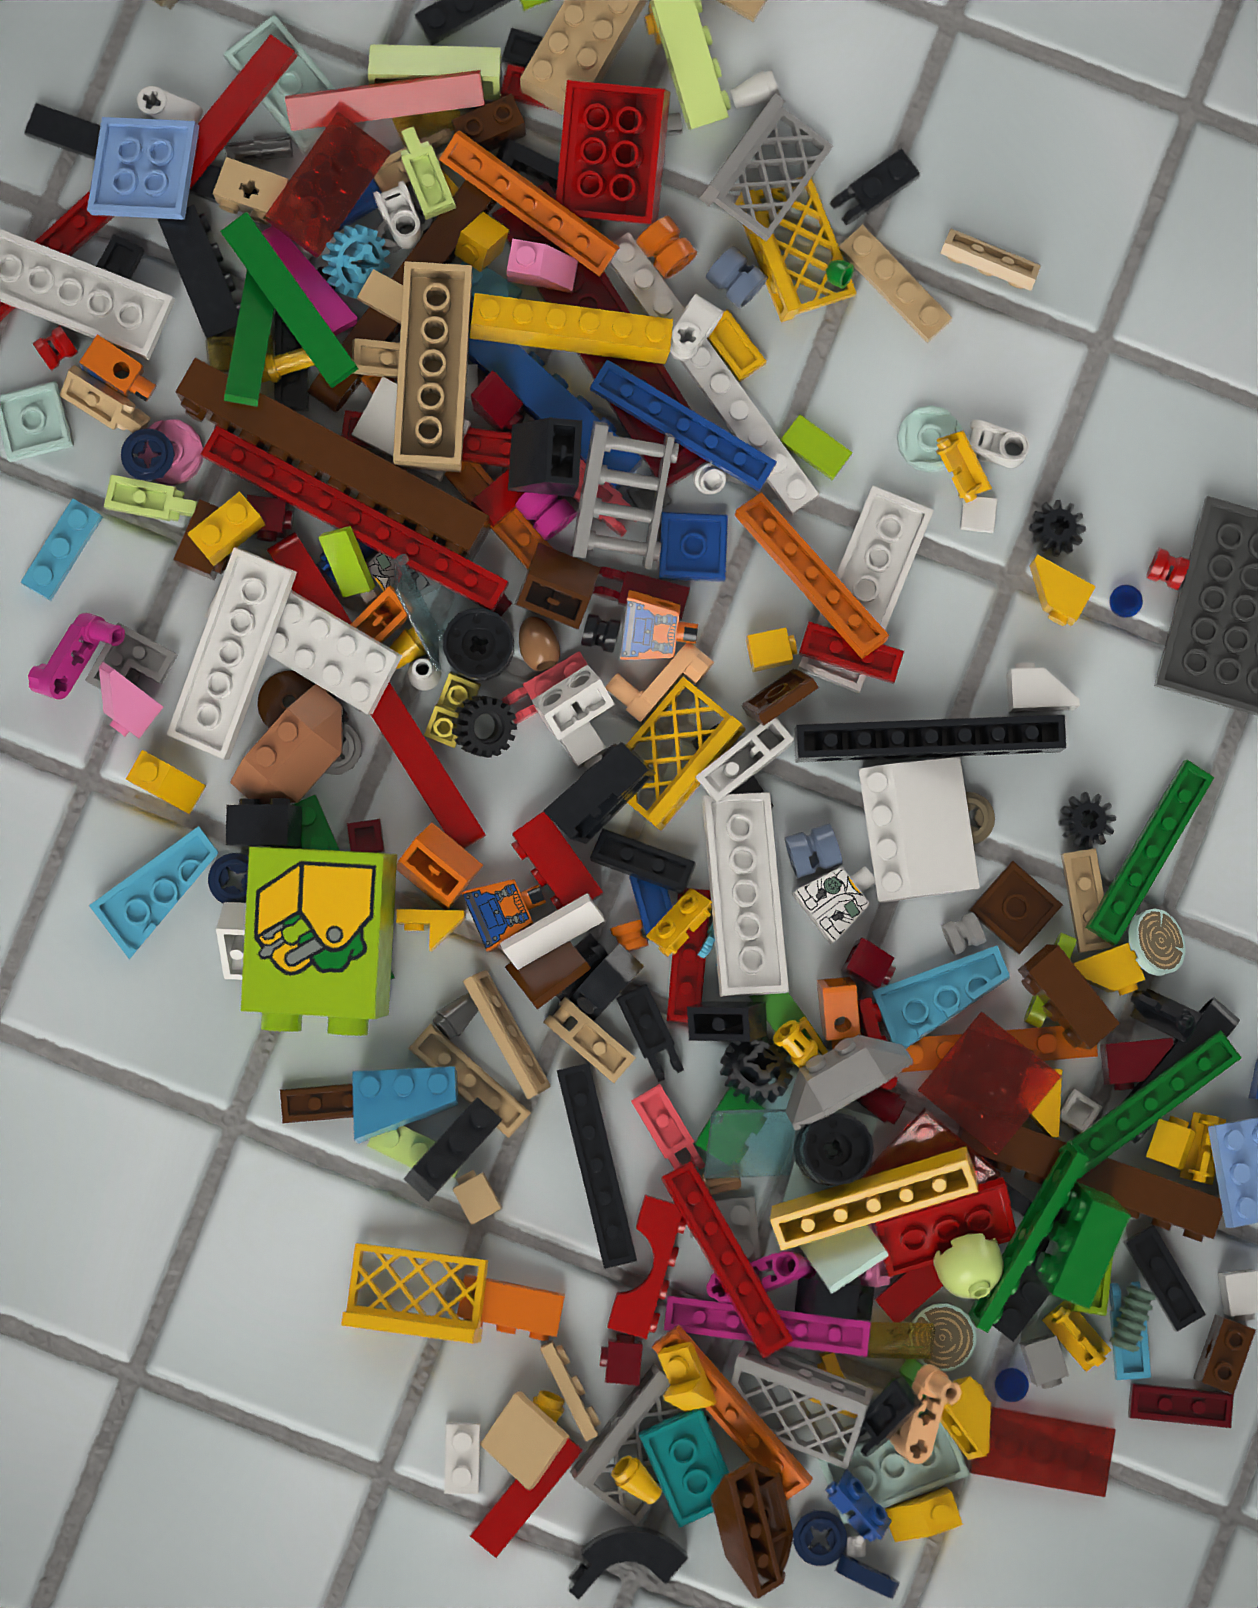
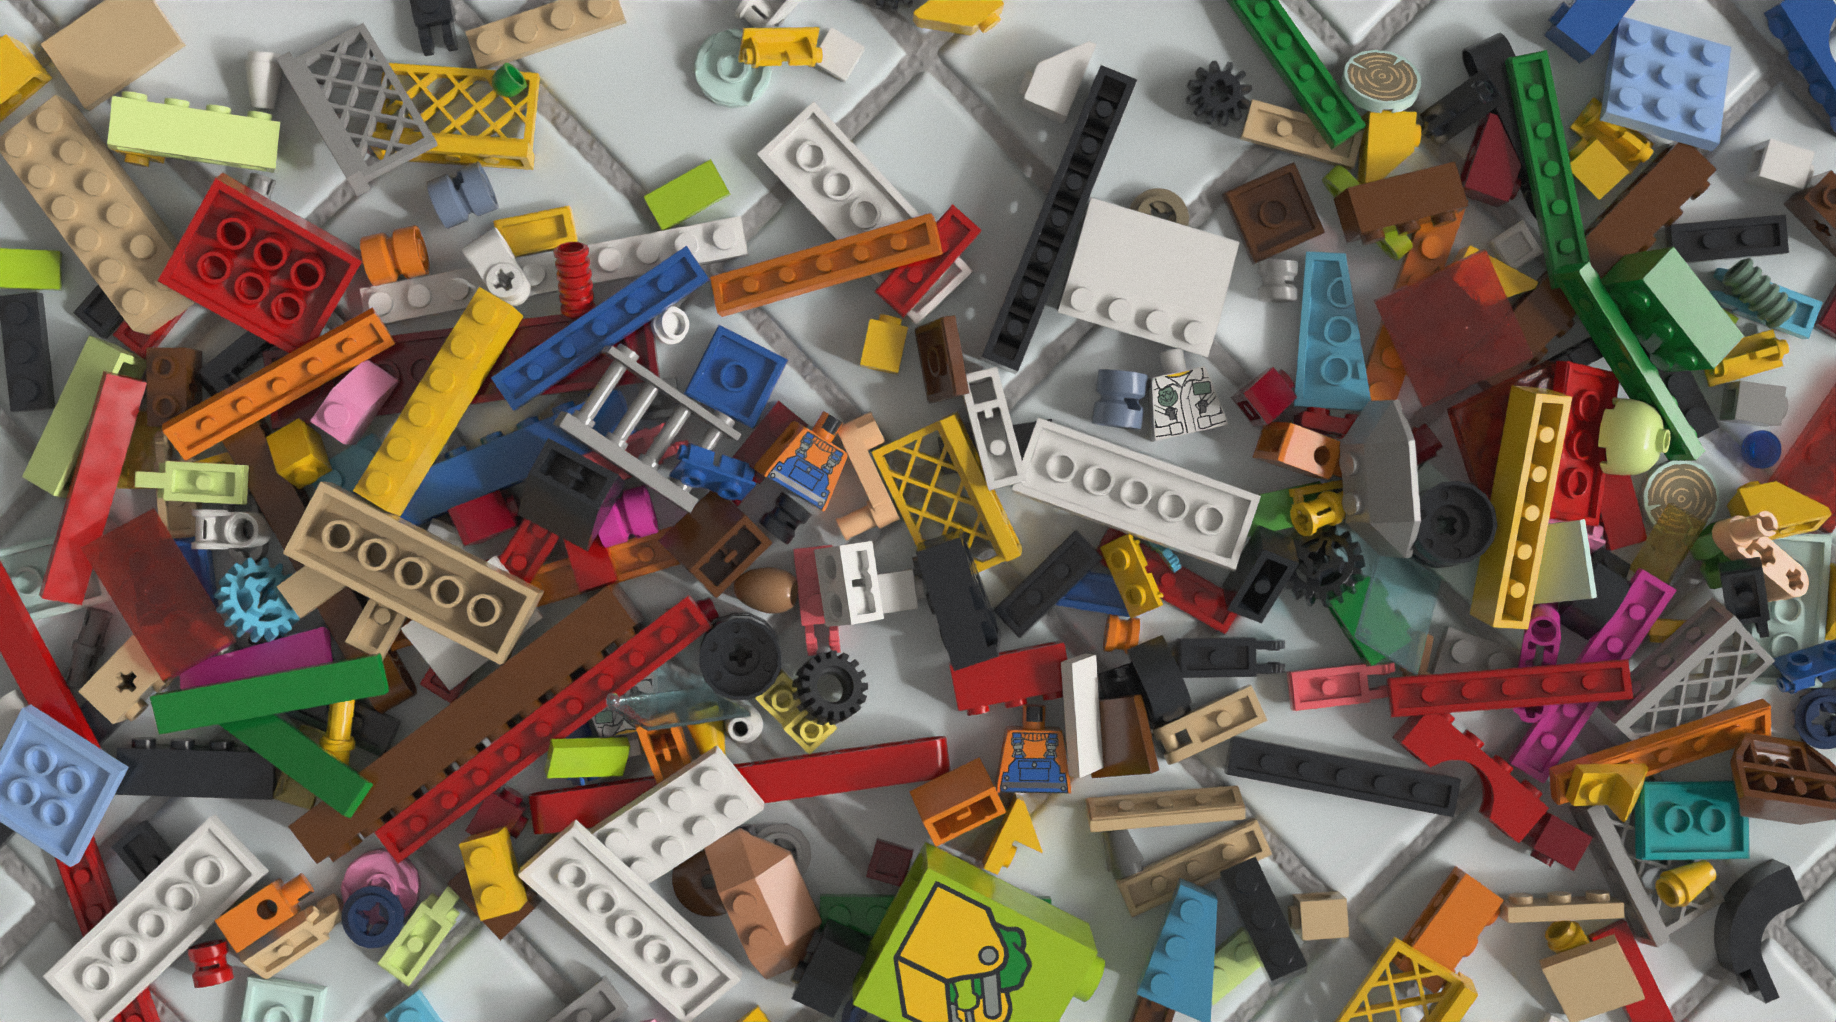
camera: 60 degrees left, 5 degrees up
(611, 575) = (729, 479): none -> blue hinge
(712, 388) = (574, 279): none -> red piece

